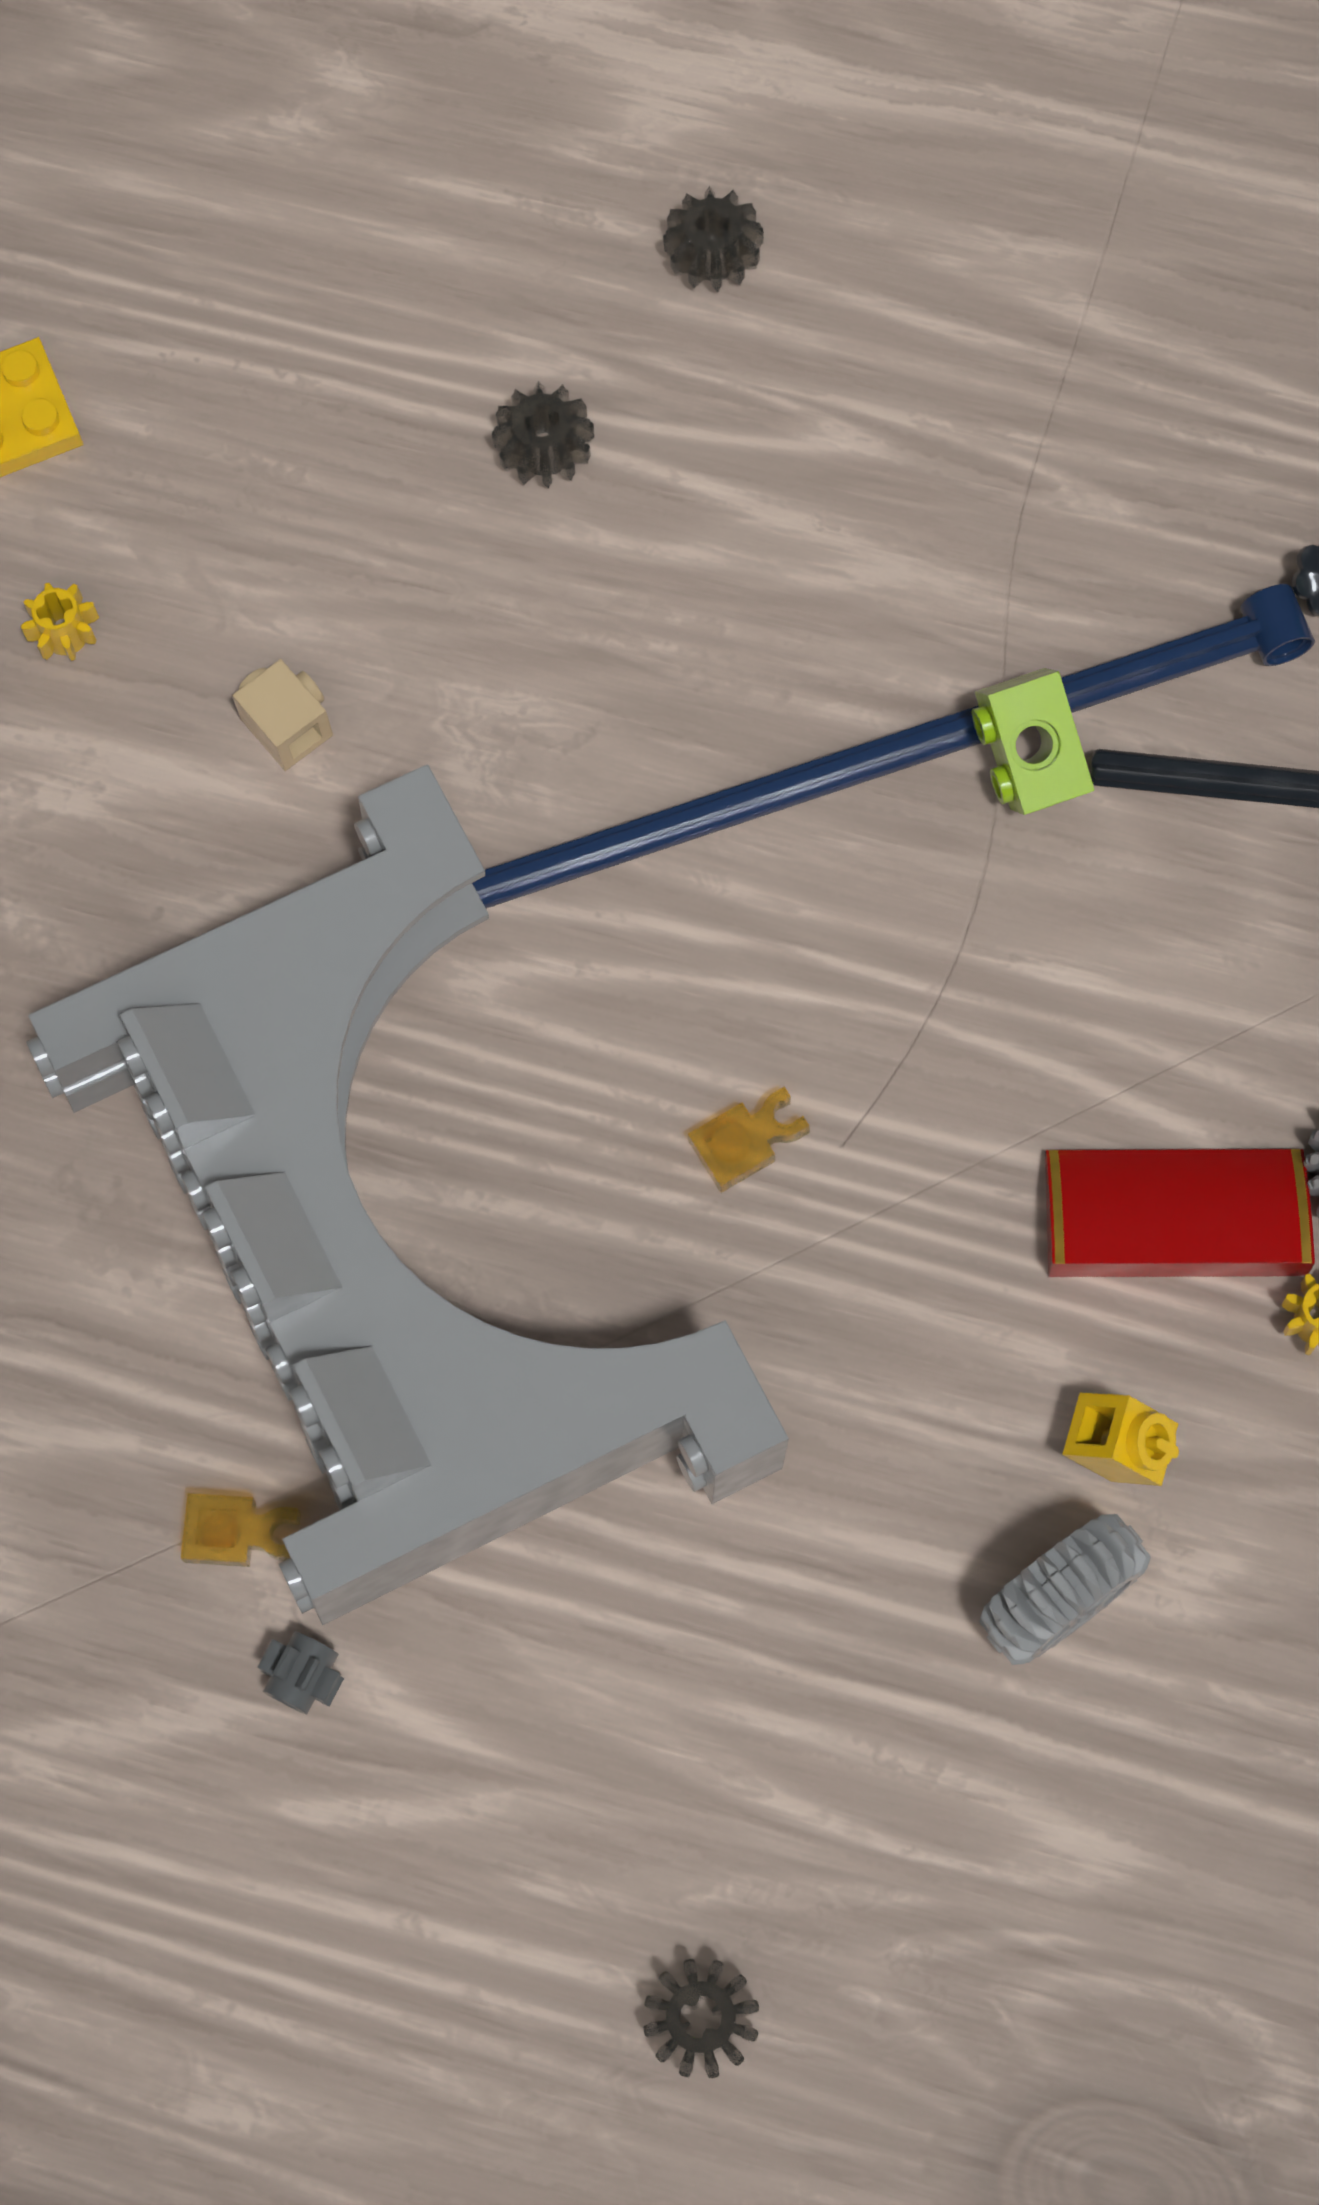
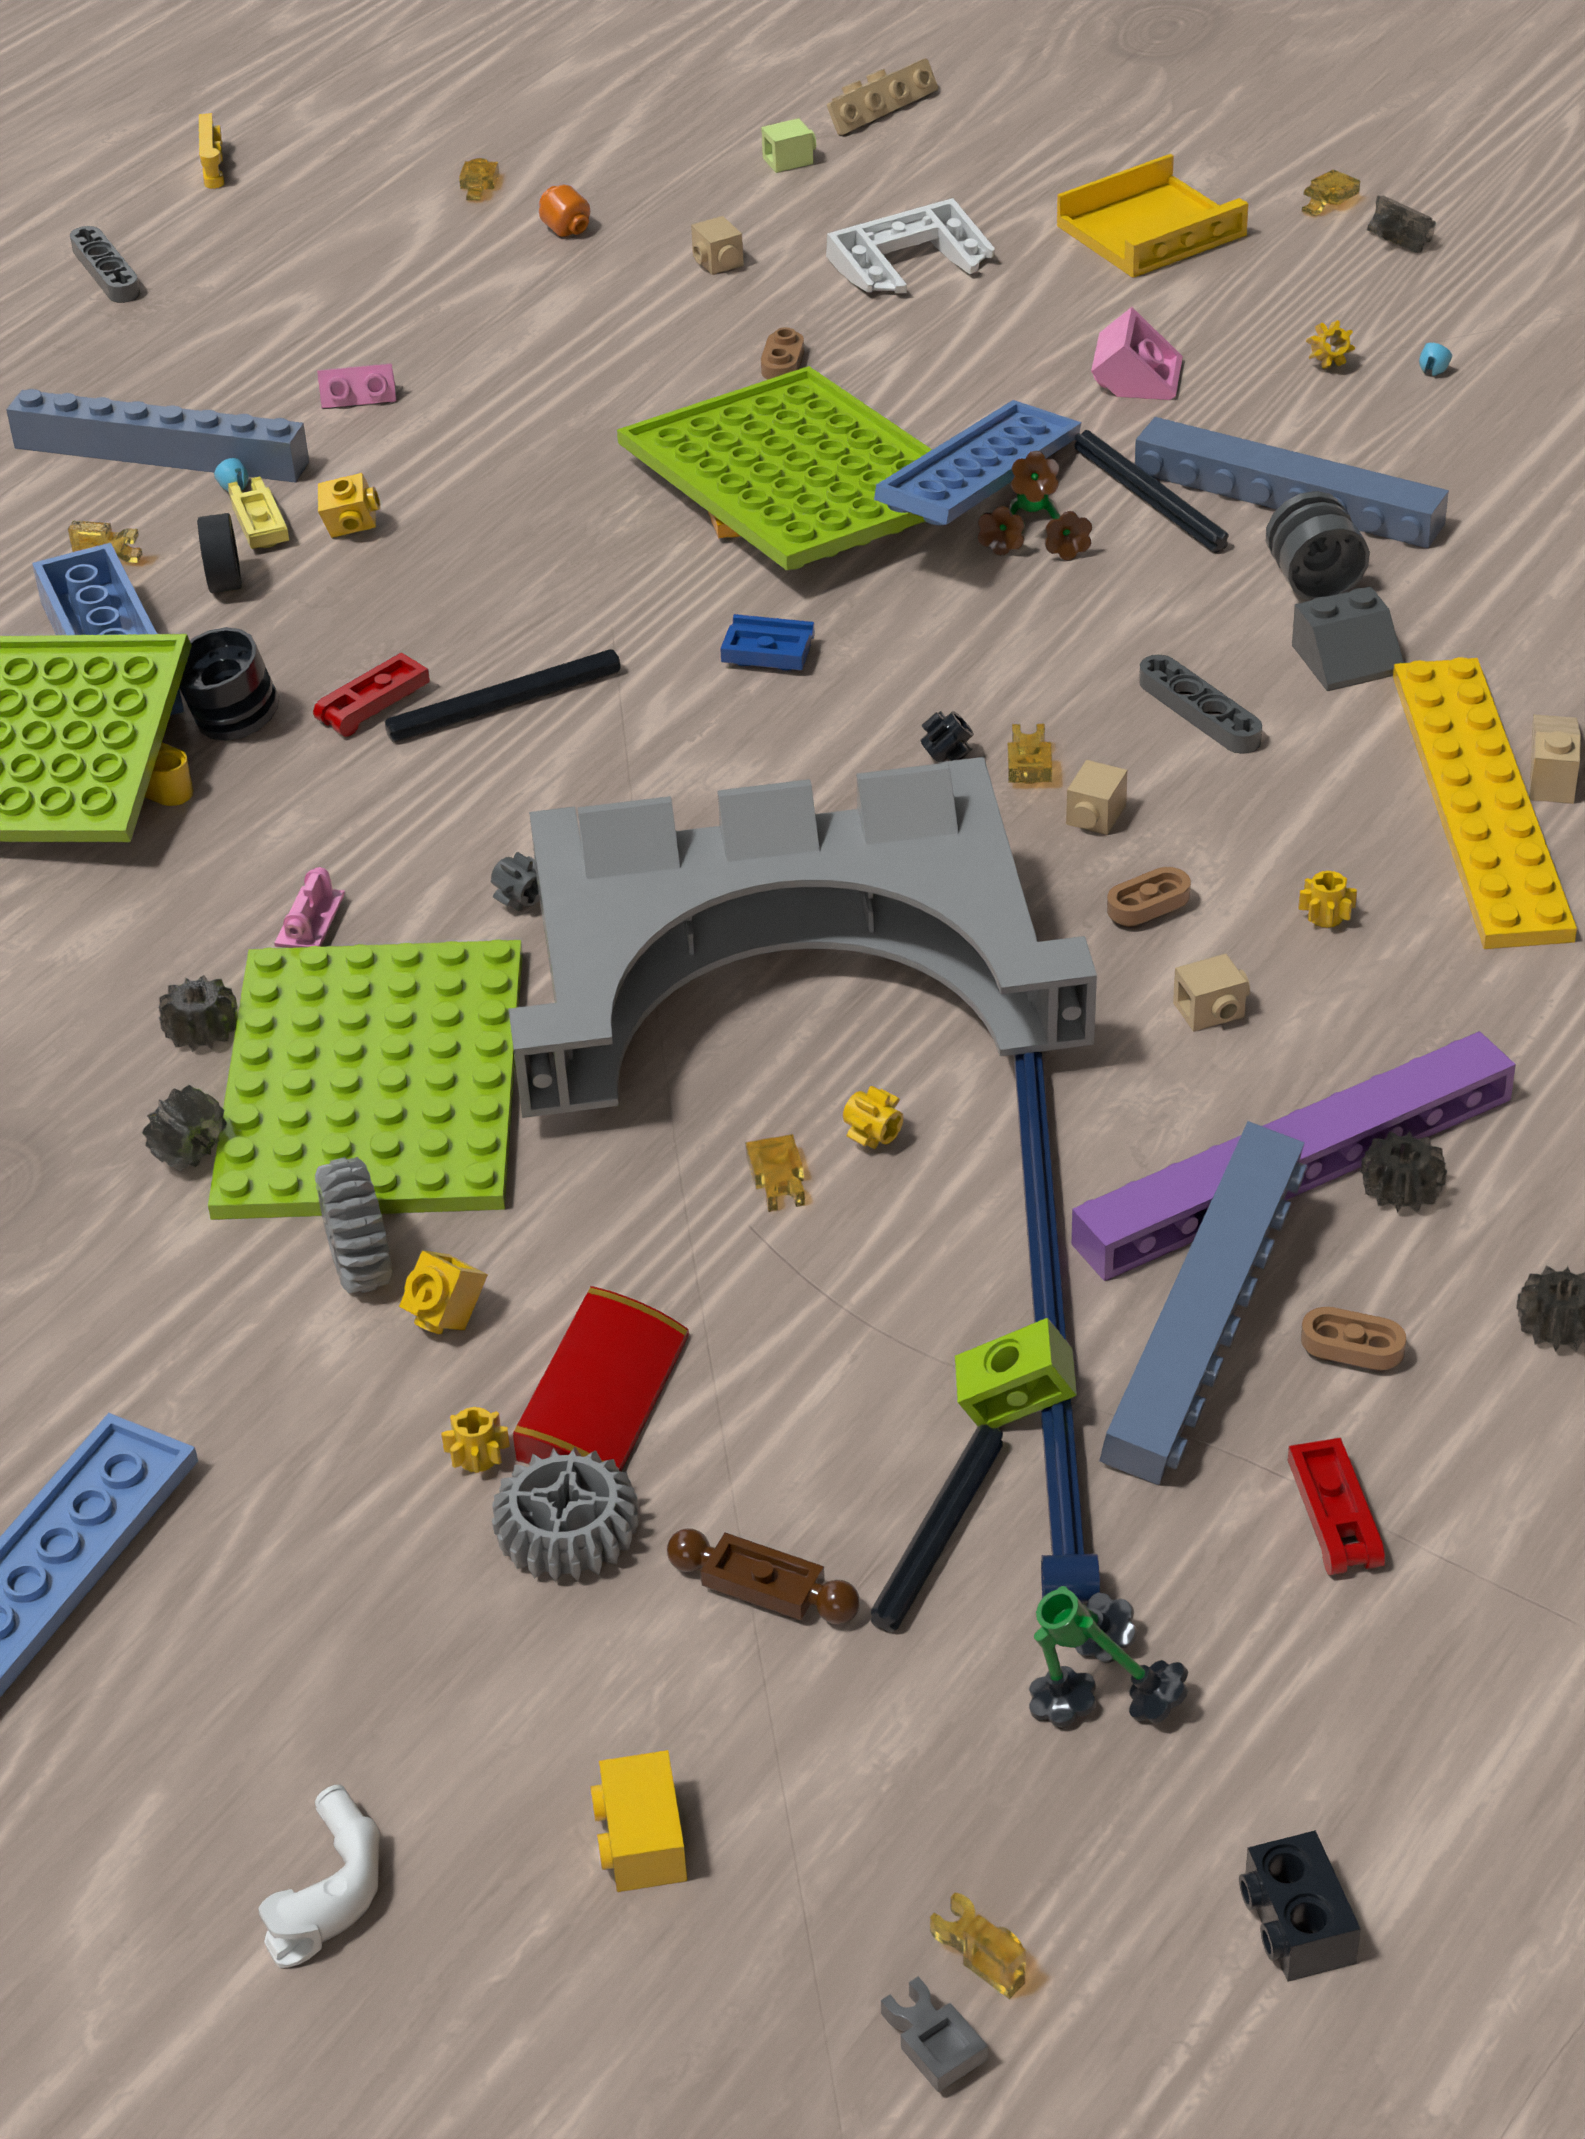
camera: 105 degrees right, 30 degrees down
(106, 839) = (1148, 896): none -> medium nougat plate
(438, 1961) = (311, 912): none -> bright pink hinge
(551, 557) = (1419, 1097): none -> medium lavender brick
(639, 1039) = (873, 1117): none -> yellow gear
(730, 1731) = (375, 1060): none -> lime plate
(824, 438) = (1353, 1338): none -> medium nougat plate
(853, 571) = (1202, 1305): none -> sand blue brick
(952, 1909) = (184, 1127): none -> clear smoke gear
(1073, 401) = (1335, 1505): none -> red plate

